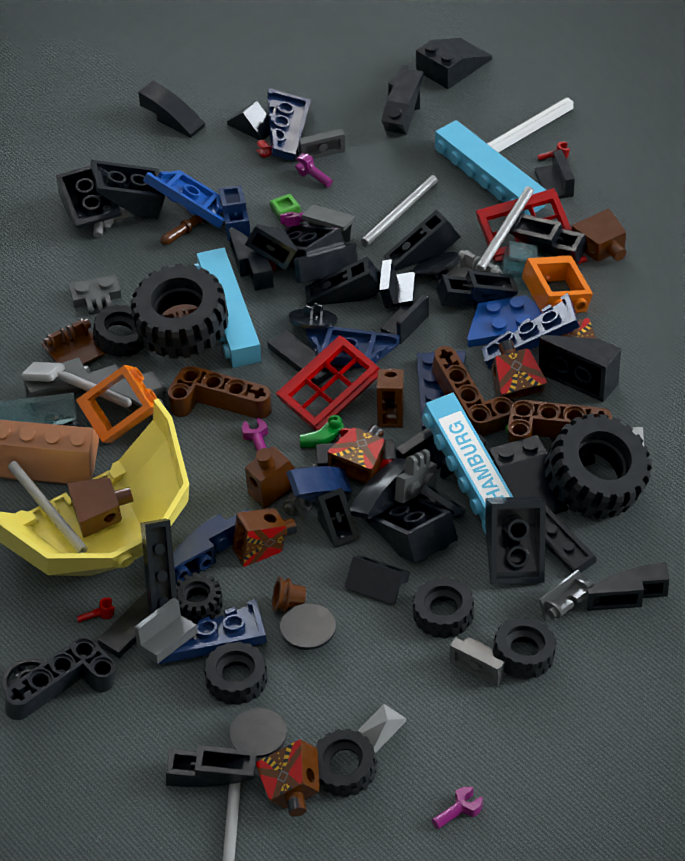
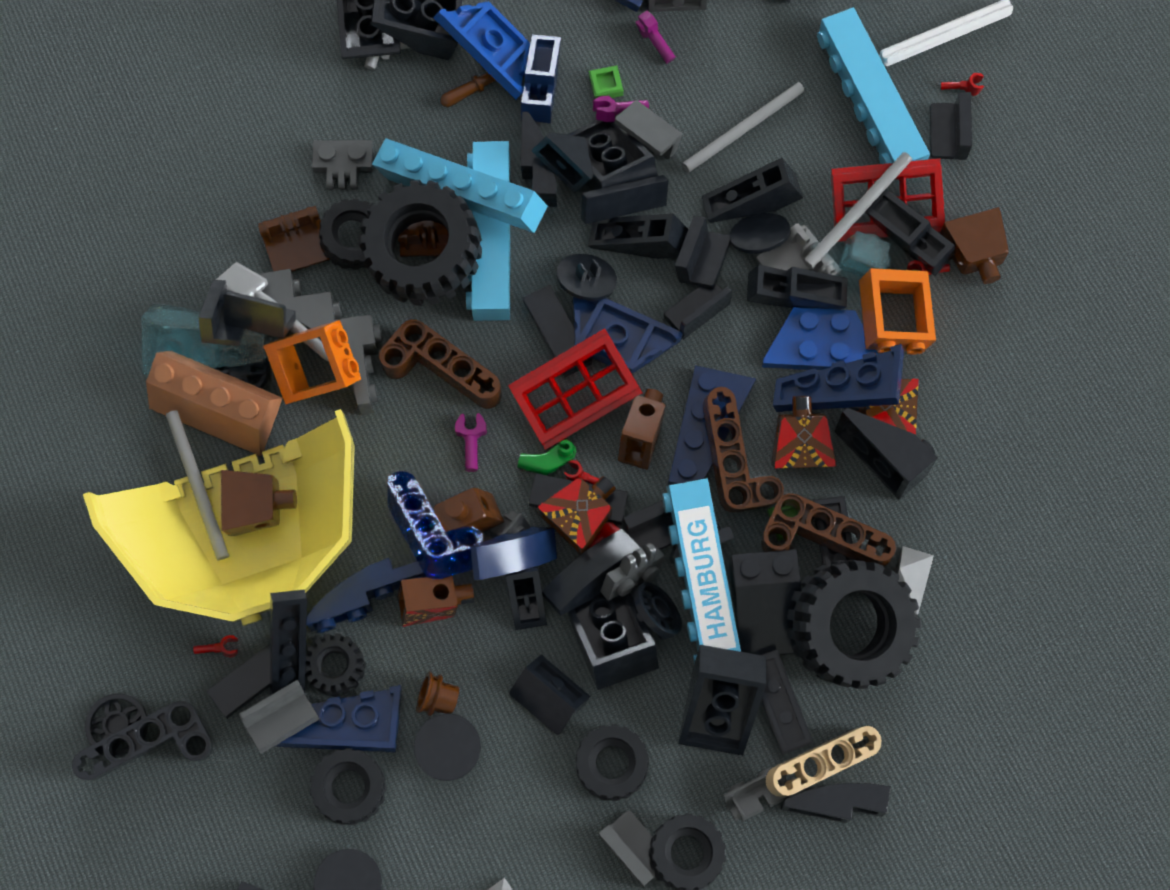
camera: 15 degrees right, 25 degrees up
(39, 392) = (212, 319): none -> black panel
(66, 375) = (257, 314): none -> black panel
(233, 270) = (479, 190): none -> medium azure brick
(245, 486) = (436, 551): none -> clear blue beam
(612, 565) = (825, 764): none -> tan beam

